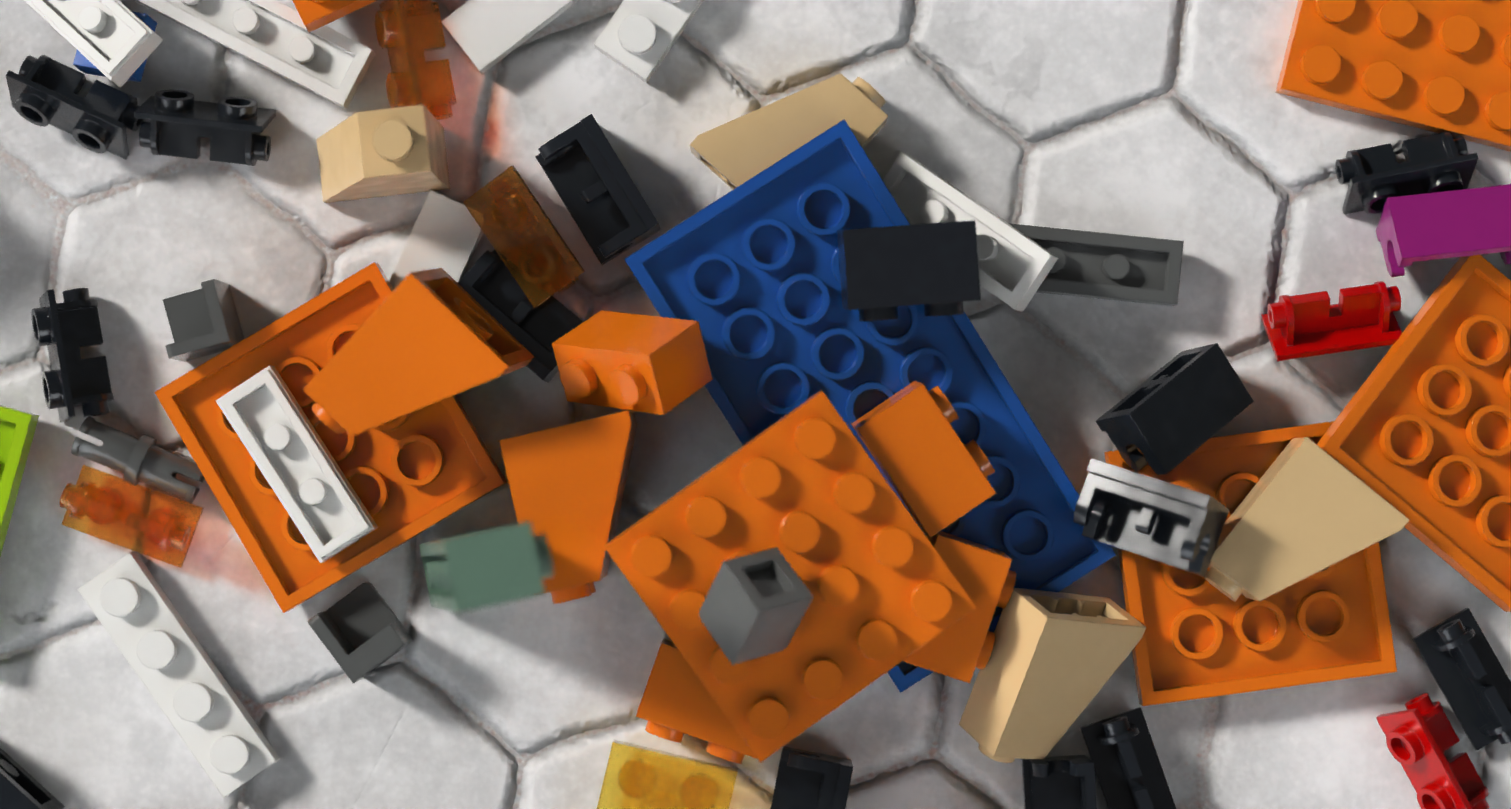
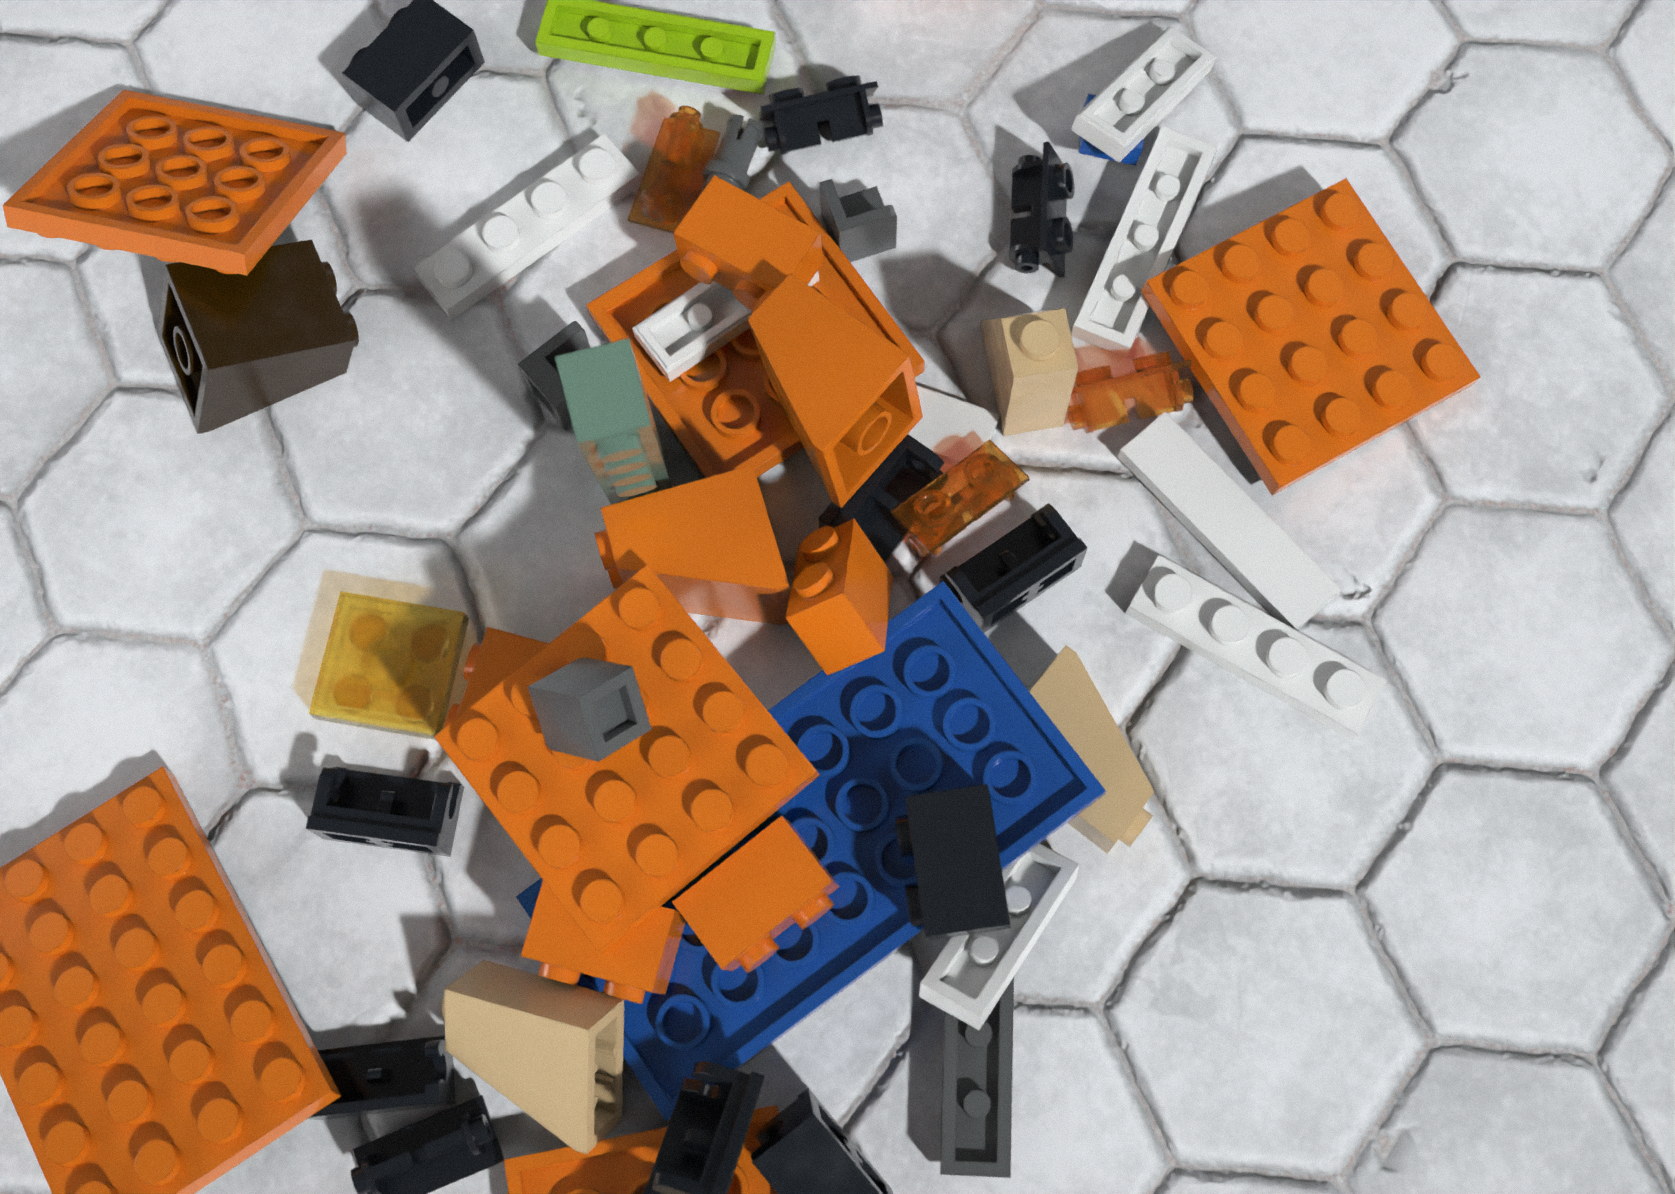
camera: 90 degrees right, 15 degrees down
(48, 93) = (1058, 80): black hinge -> none
(249, 437) = (744, 243): none -> orange brick

